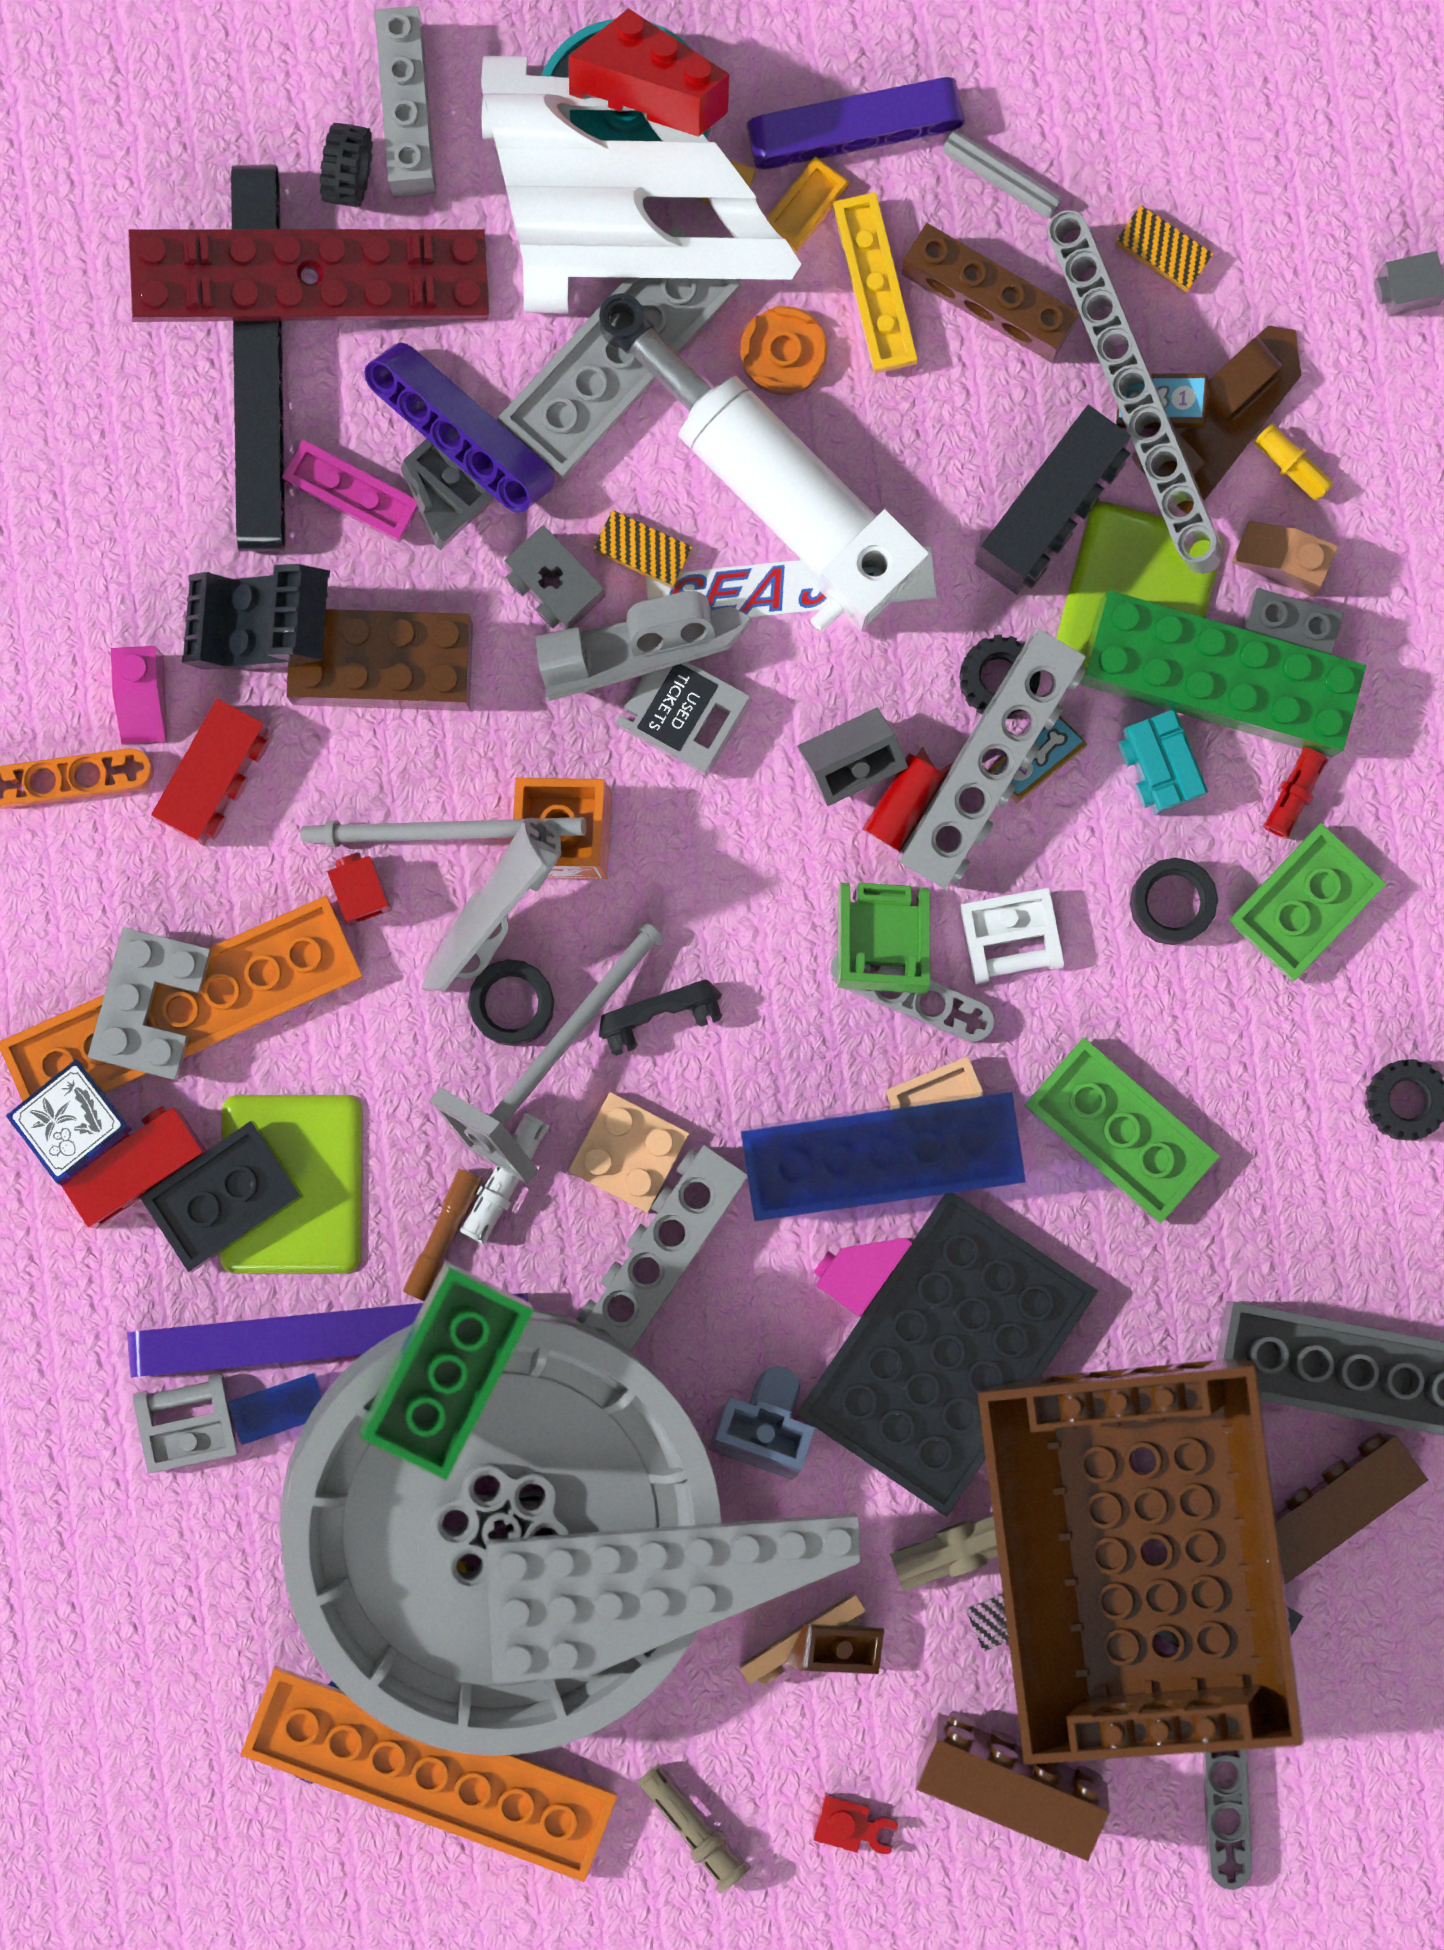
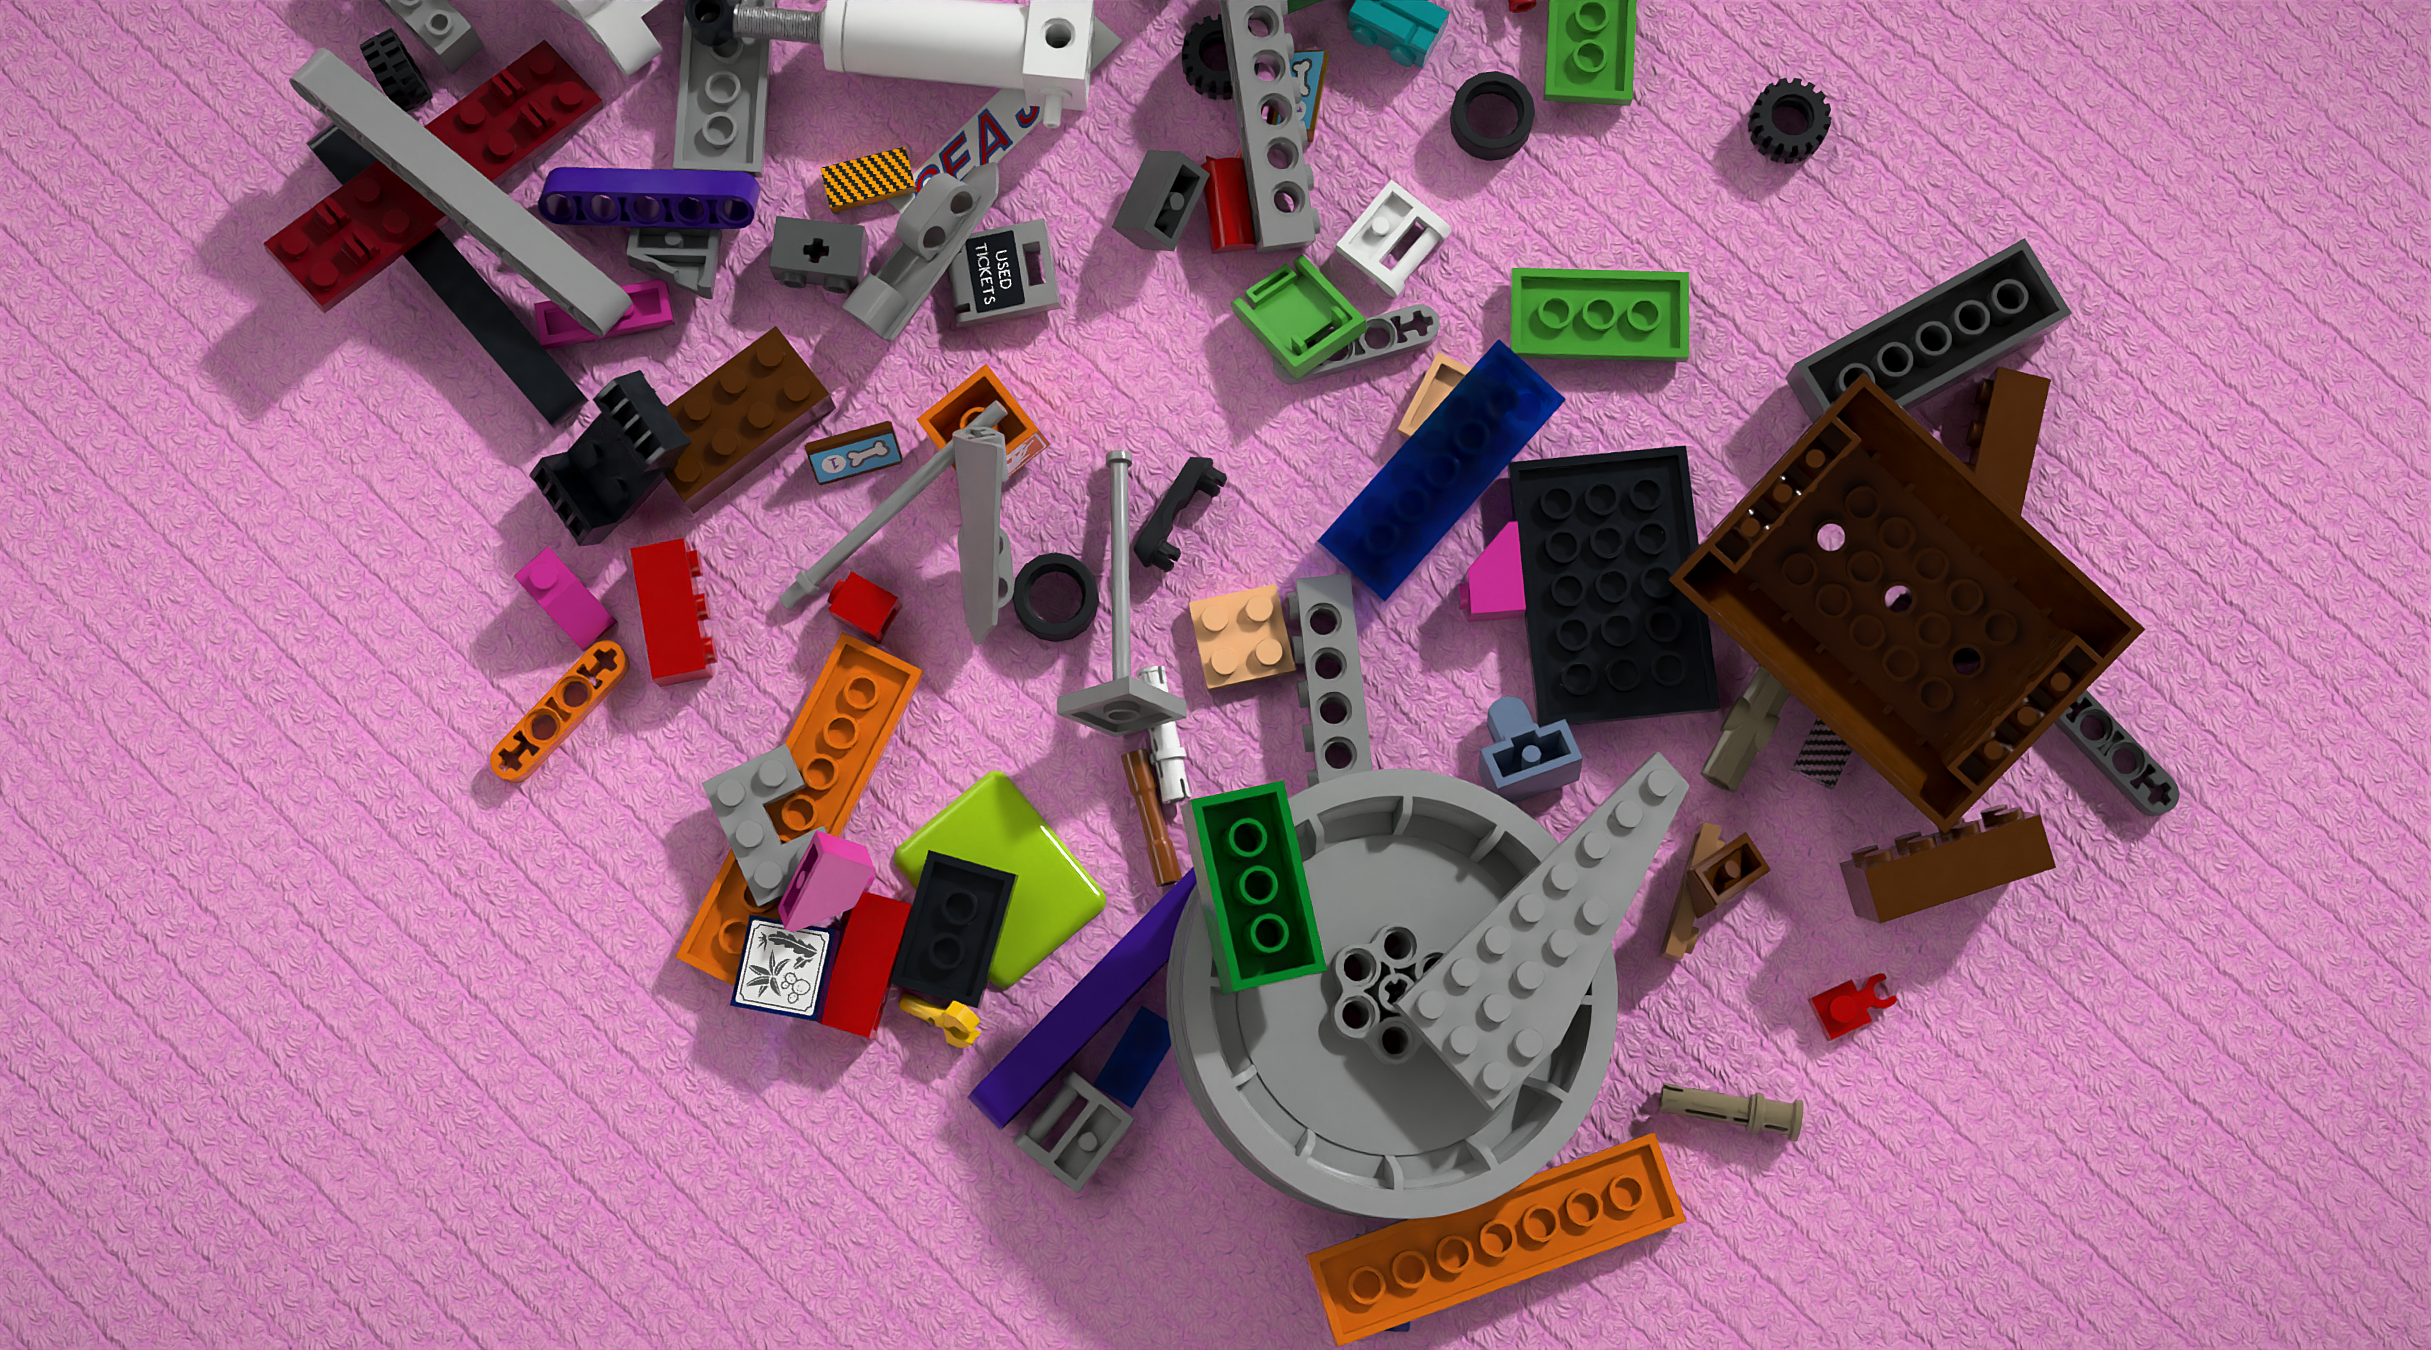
camera: 40 degrees left, 5 degrees down
(150, 1083) = (826, 881): none -> dark pink slope
(165, 1267) = (956, 1020): none -> yellow bar
(311, 311) = (460, 192): none -> light grey beam
(451, 761) = (854, 453): none -> slope

